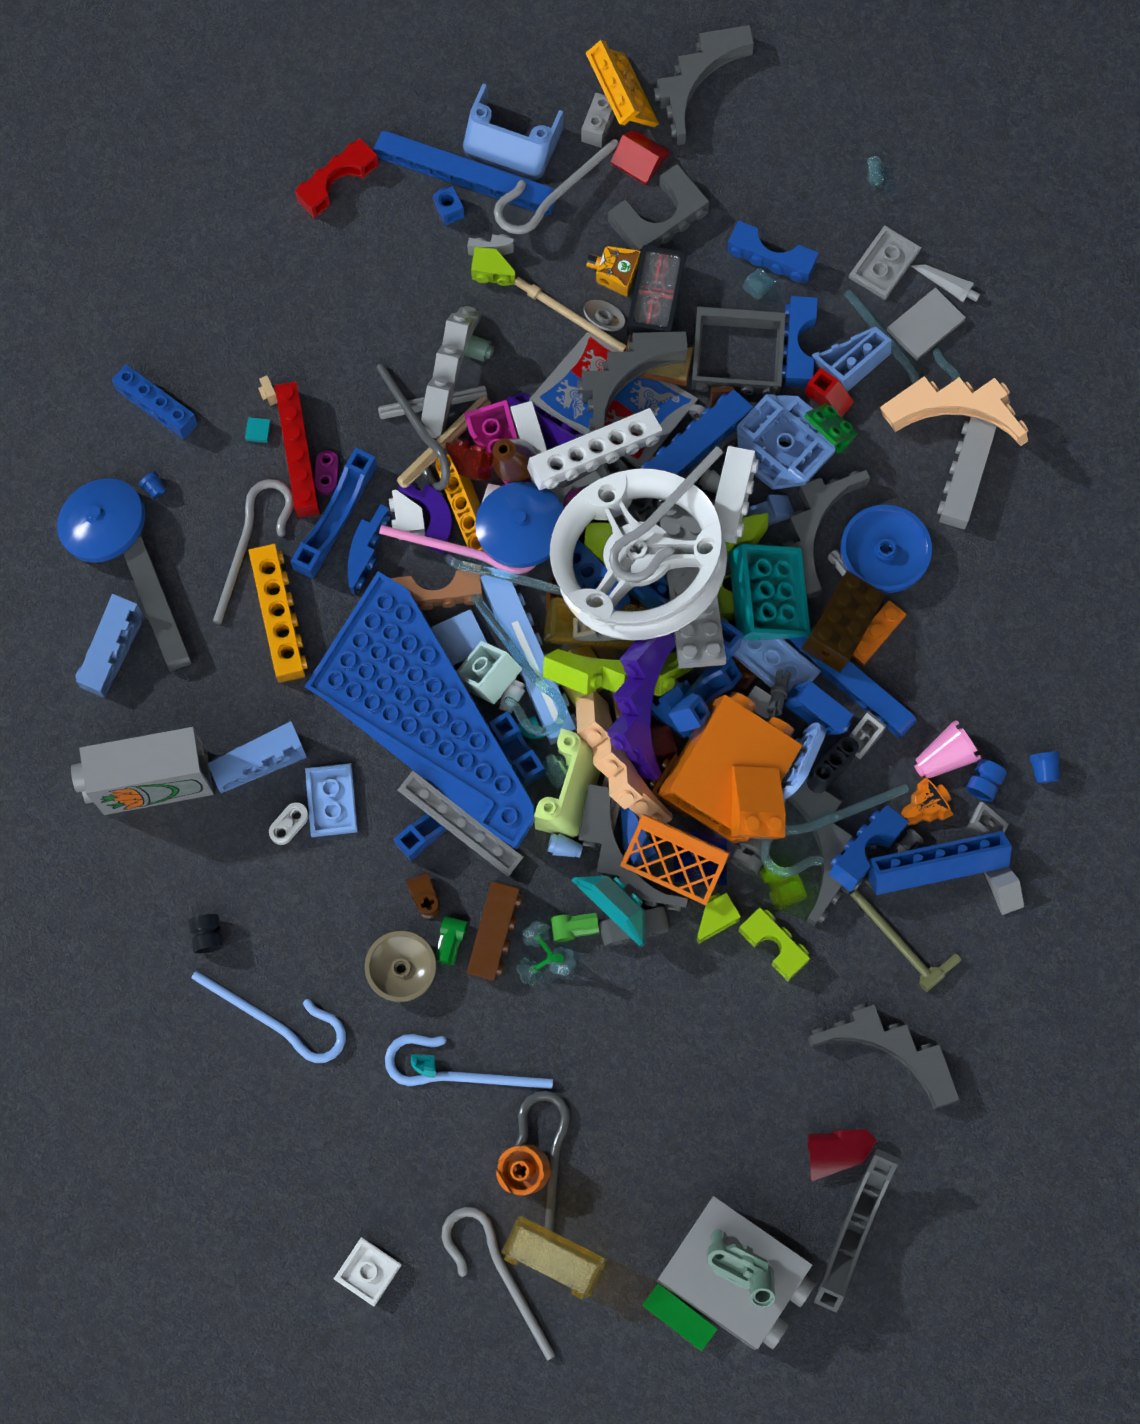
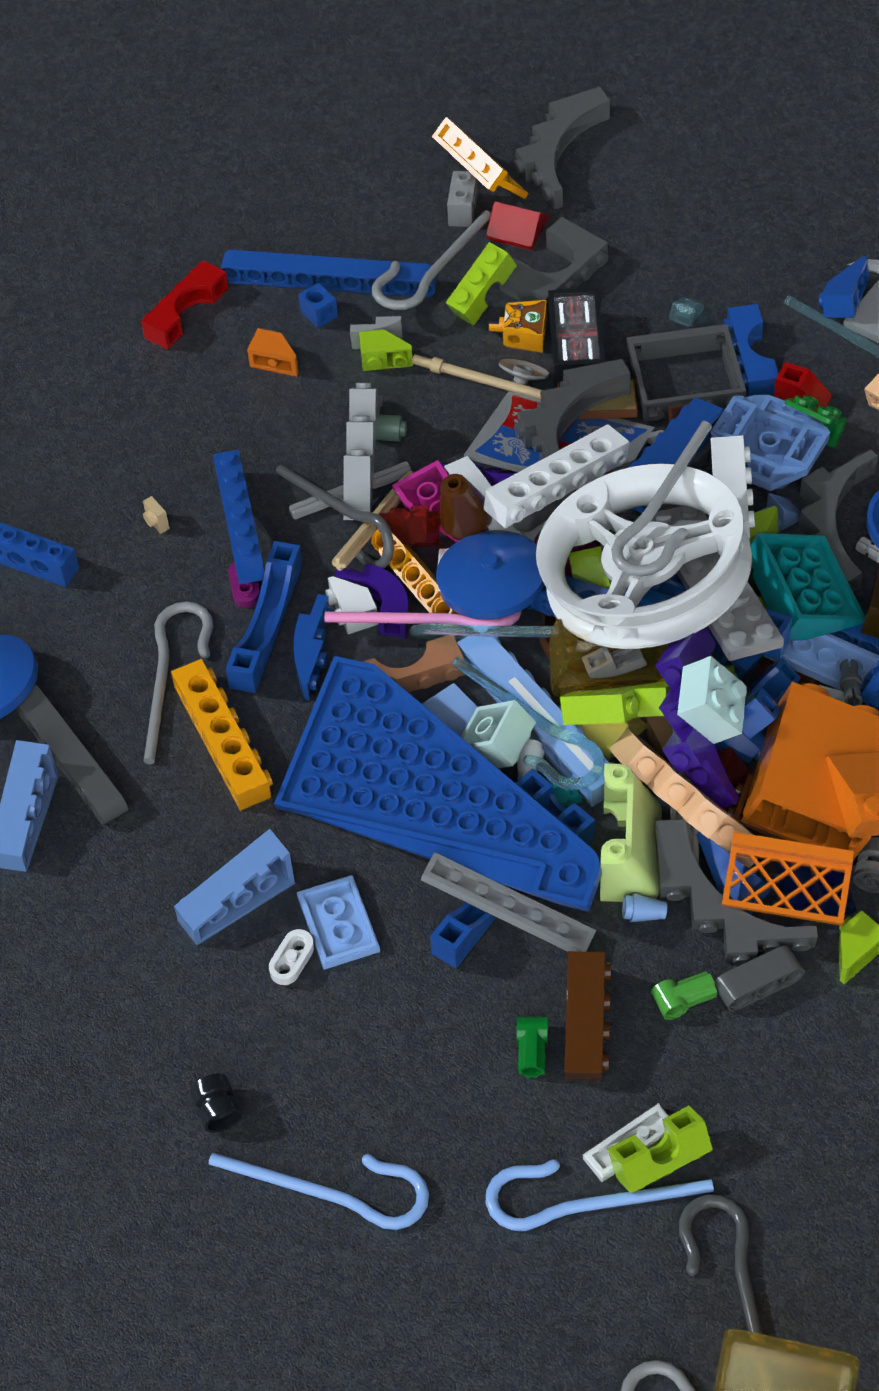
camera: 10 degrees left, 20 degrees down
(143, 771) = (97, 922): light grey brick -> none
(152, 485) = (39, 634): blue piece -> none
(258, 430) = (152, 557): teal tile -> none
(297, 449) = (204, 565): red brick -> none
(332, 412) = (239, 517): none -> blue arch
(396, 950) = (472, 1068): dark tan dish -> none
(398, 246) = (272, 353): none -> orange slope
(422, 893) = (483, 1000): reddish brown piece -> none
(424, 1064) = (539, 1196): teal tile -> none
(502, 1035) = (646, 1127): none -> white tile
(506, 148) = (369, 236): medium blue windscreen -> none
(512, 1163) = (714, 1273): orange brick -> none
(535, 1050) = (682, 1142): none -> lime arch
(555, 770) = (608, 826): clear light blue brick -> none
(560, 960) = (675, 1036): clear light blue plant -> none
(598, 211) = (469, 296): none -> lime arch
(617, 904) = (729, 946): teal wedge -> none
(654, 701) = (712, 700): none -> light aqua brick
(796, 264) = (719, 283): blue arch -> none
(854, 358) = (821, 348): medium blue wedge -> none
(874, 176) = (780, 192): clear light blue pin -> none
(884, 262) = (816, 264): light grey tile -> none
(896, 300) = (845, 291): none -> blue slope

